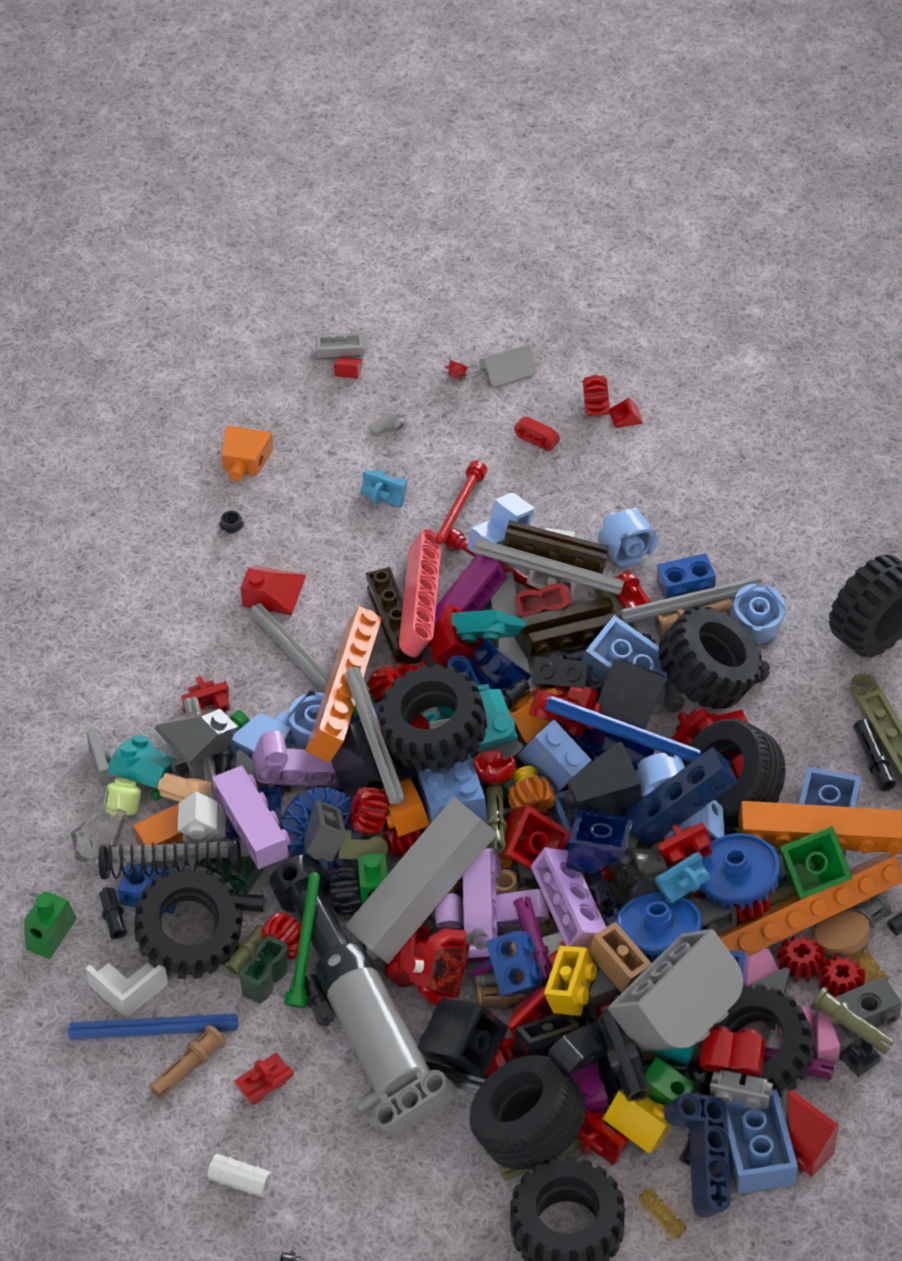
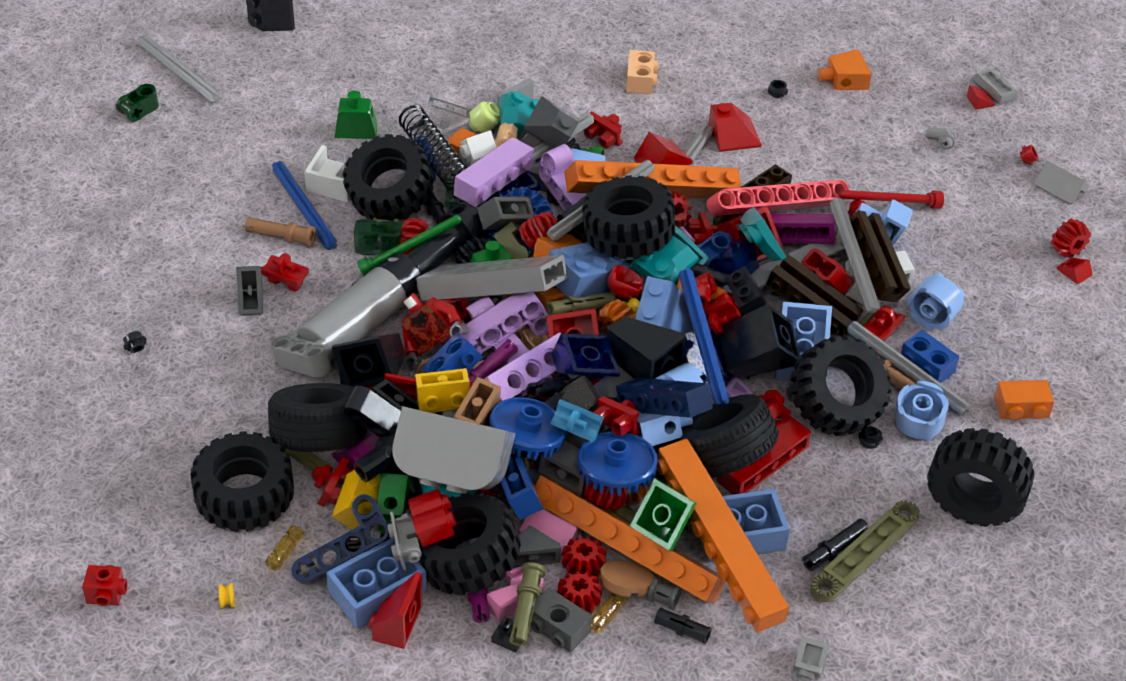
camera: 60 degrees right, 5 degrees down
(130, 627) = (641, 72): none -> light nougat brick
(240, 1175) = (197, 290): white axle -> none
(275, 1123) = (250, 290): none -> dark grey slope
(283, 667) = (661, 151): none -> red slope
(383, 488) = (875, 154): dark azure hips -> none
(536, 433) = (1004, 220): red beam -> none
(775, 533) = (1024, 399): none -> orange brick

